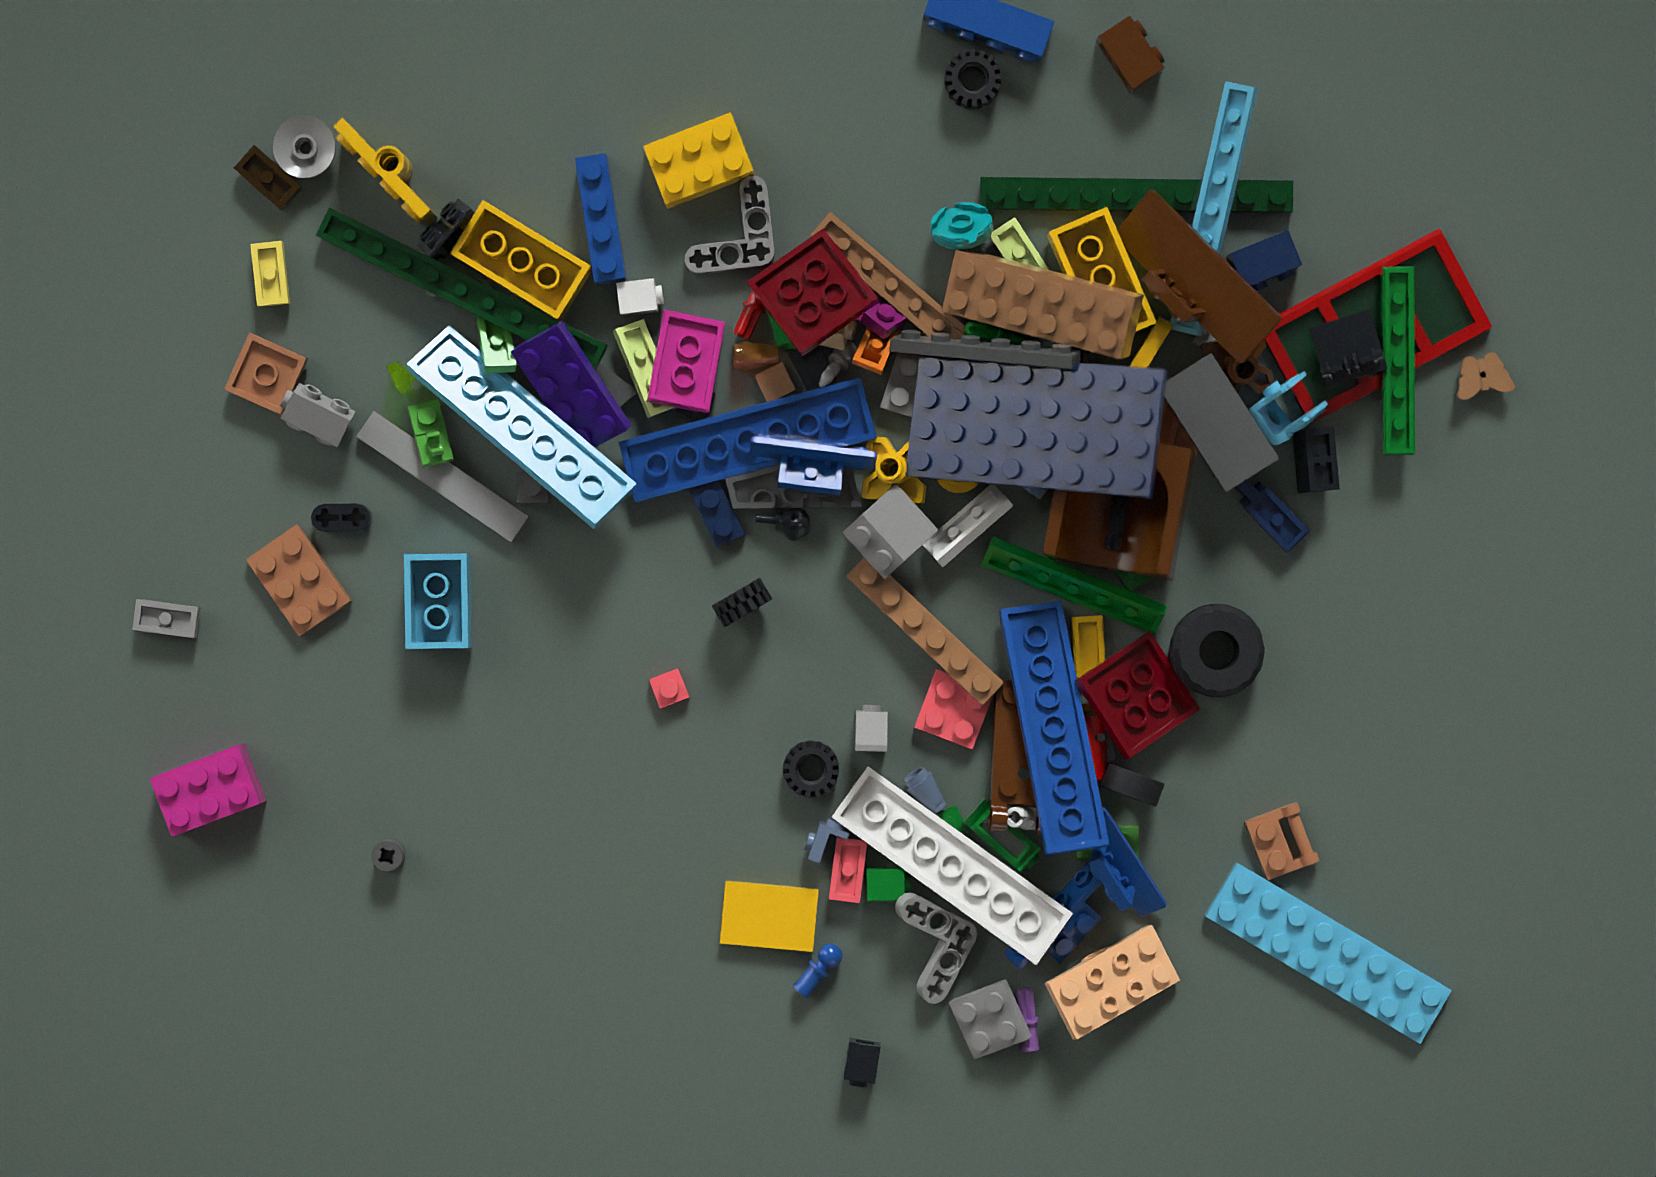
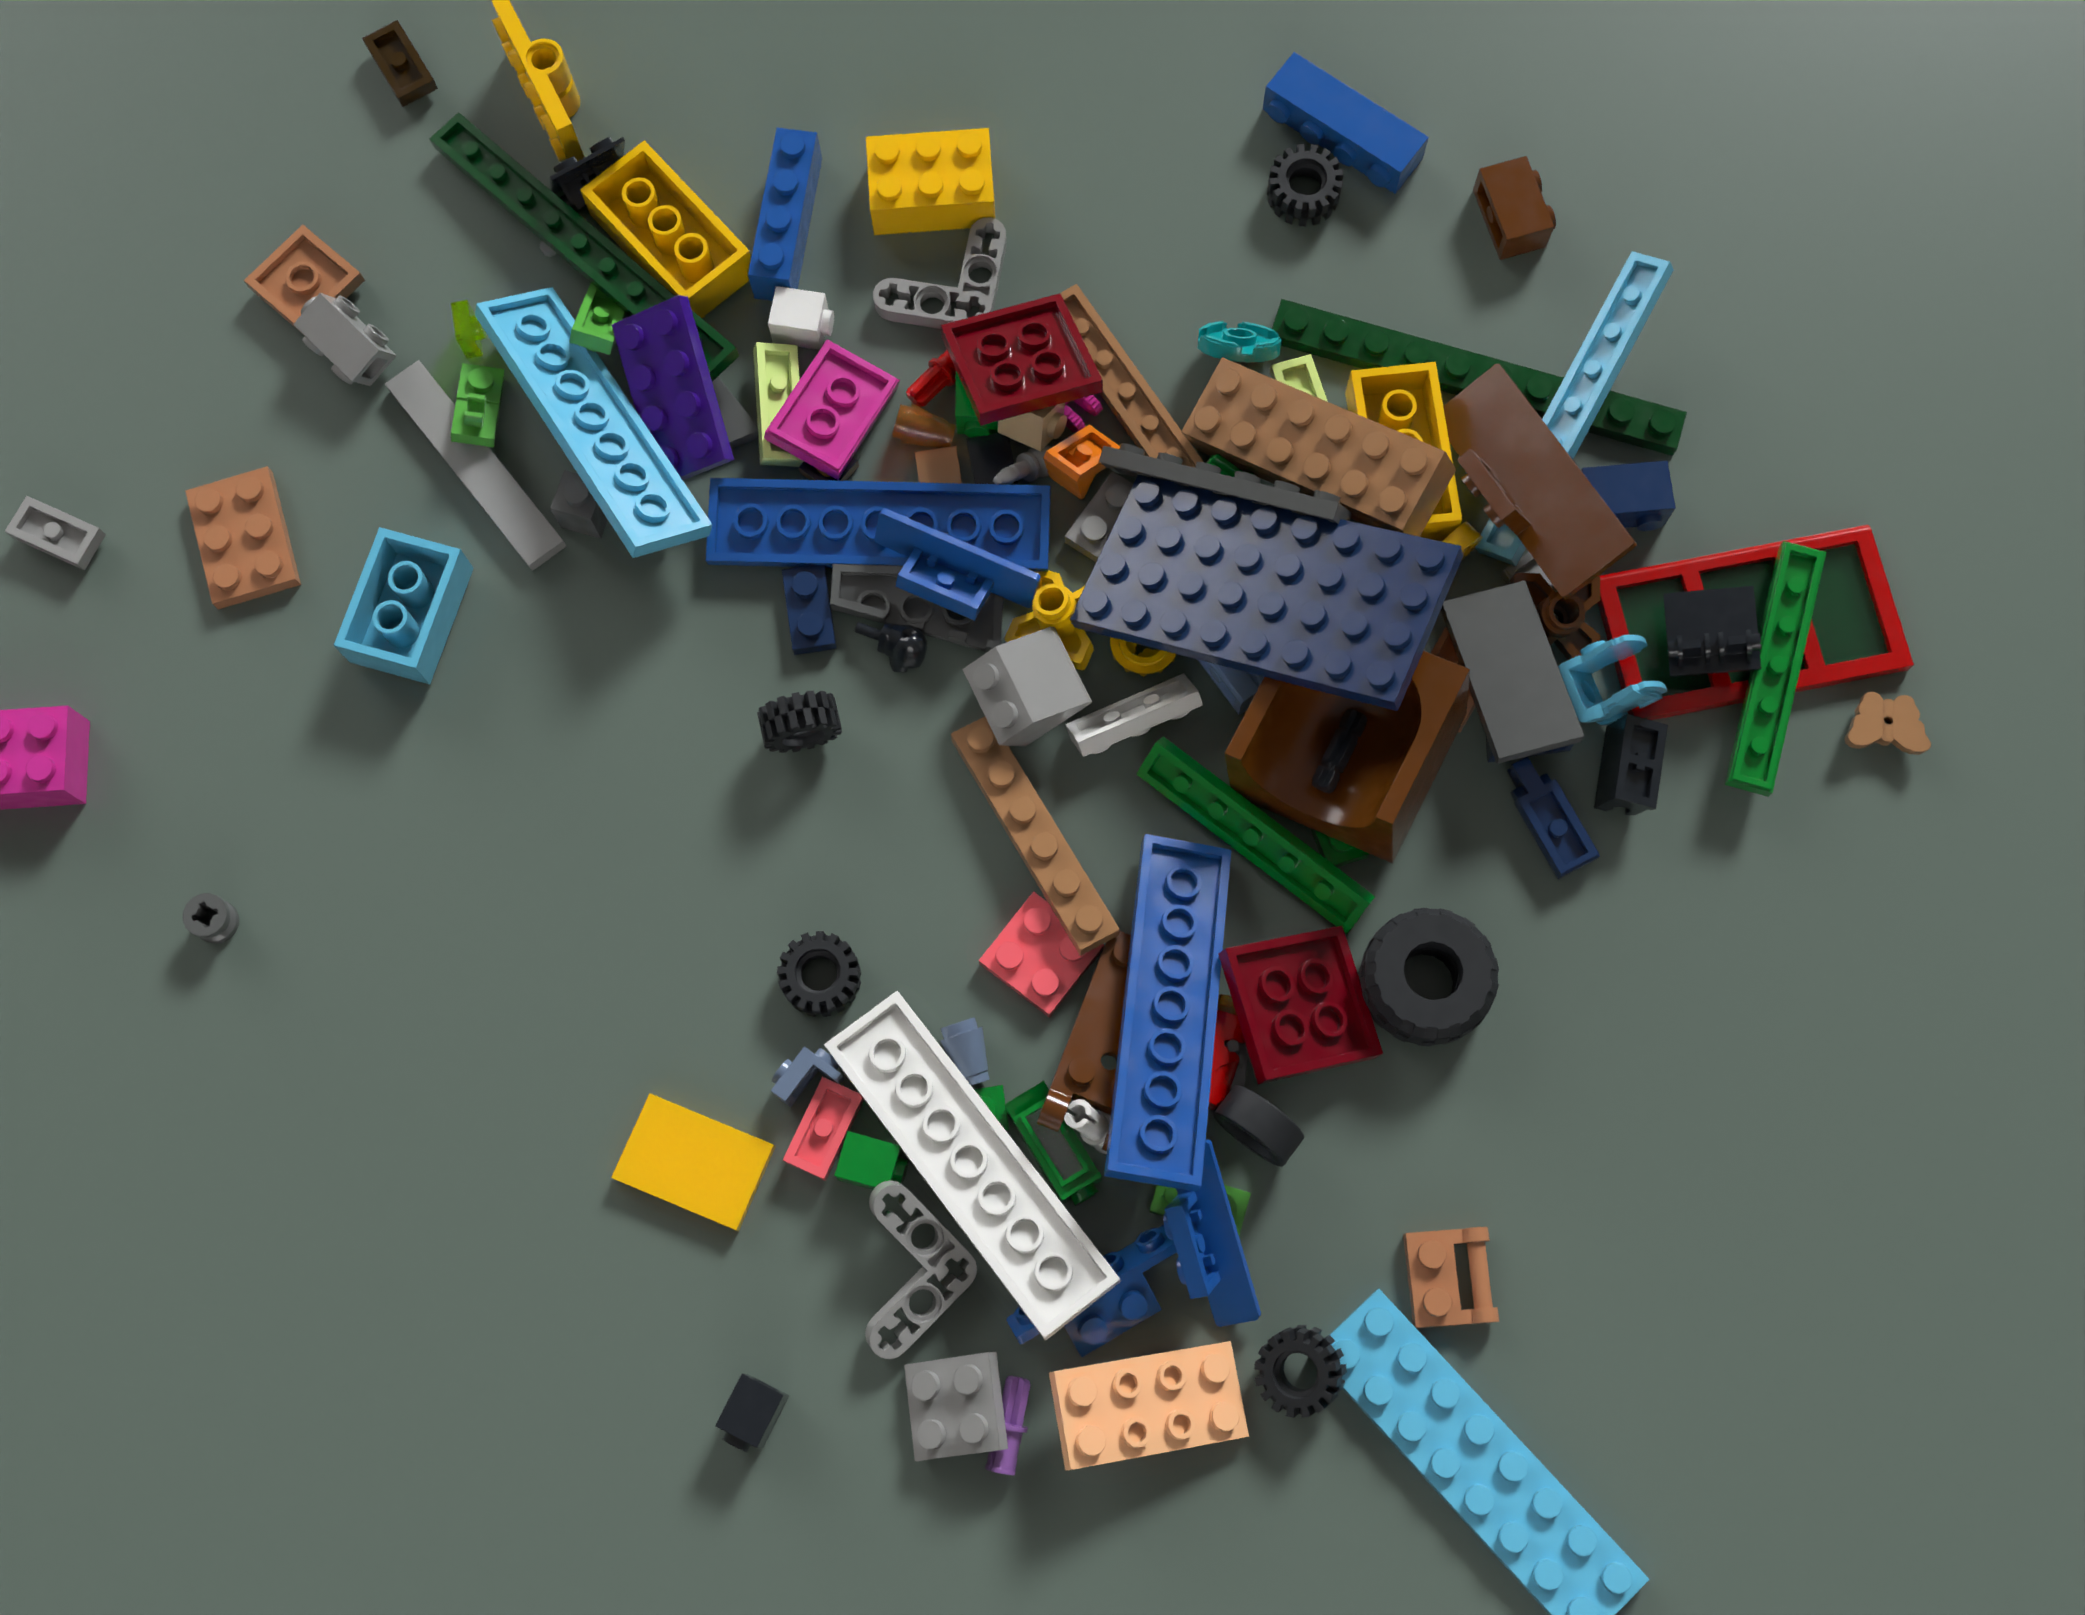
camera: 20 degrees right, 15 degrees down
(270, 273) = (357, 169): light yellow plate -> none
(293, 135) = (451, 27): light grey dish -> none
(341, 510) = (329, 468): black beam -> none
(669, 688) = (667, 812): coral plate -> none
(828, 957) = (756, 1244): blue pin -> none
(871, 729) = (917, 942): light grey slope -> none
(883, 319) = (1102, 427): magenta plate -> none
(1087, 642) = (1252, 913): yellow tile -> none
(1196, 947) = (1277, 1386): none -> black tyre

